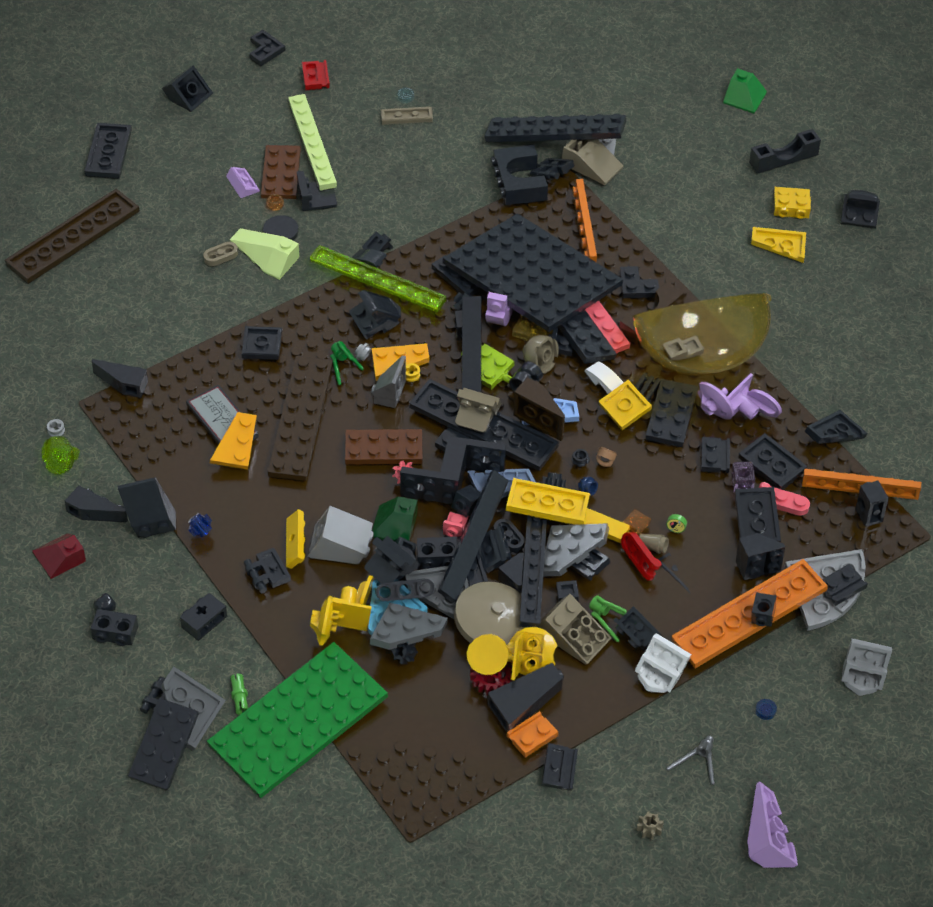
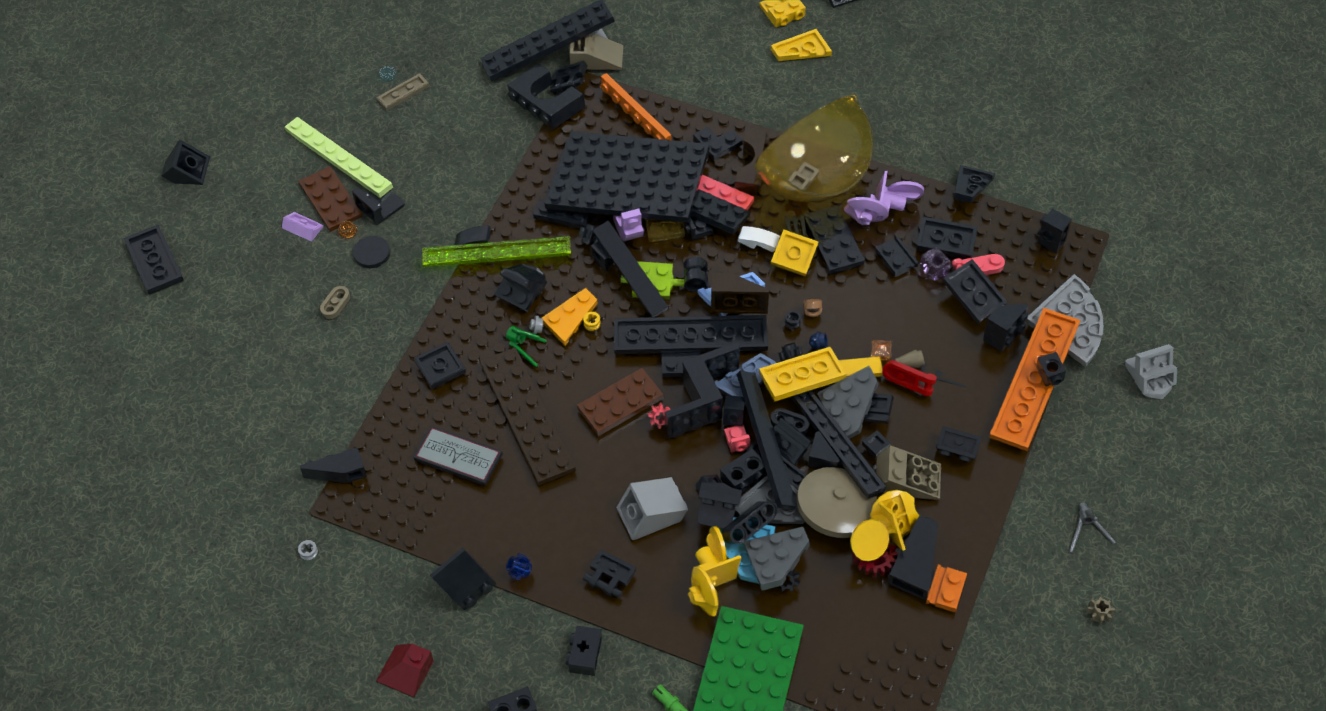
camera: 30 degrees left, 5 degrees up
(59, 454) = (334, 575): clear neon green tile -> none
(71, 235) = (181, 358): dark brown plate -> none
(92, 507) = (401, 606): black slope -> none
(105, 602) = (486, 692): black piece -> none
(237, 443) = (492, 471): light orange wing -> none
(267, 48) = (230, 89): black plate -> none
(270, 252) = (377, 277): yellowish green wedge -> none
(295, 539) = (612, 530): yellow tile -> none
(315, 75) = (293, 94): red plate -> none
(378, 242) = (469, 219): black bracket -> none
(390, 384) = (586, 342): flat silver slope -> none
(395, 519) = (684, 462): dark green slope -> none
(476, 409) = (681, 325): dark tan piece -> none
(541, 351) = (688, 243): dark tan cylinder -> none
(559, 767) = (990, 603): black plate -> none
(602, 607) = (913, 441): bright green plant -> none
(661, 665) = (1006, 464): white piece -> none
(676, 523) = (915, 333): tile -> none
(766, 709) = (1104, 453): clear blue tile -> none
(766, 832) = (1201, 569): lavender wedge -> none
(844, 584) = (1087, 310): black plate -> none
(851, 483) = (1026, 220): orange plate -> none

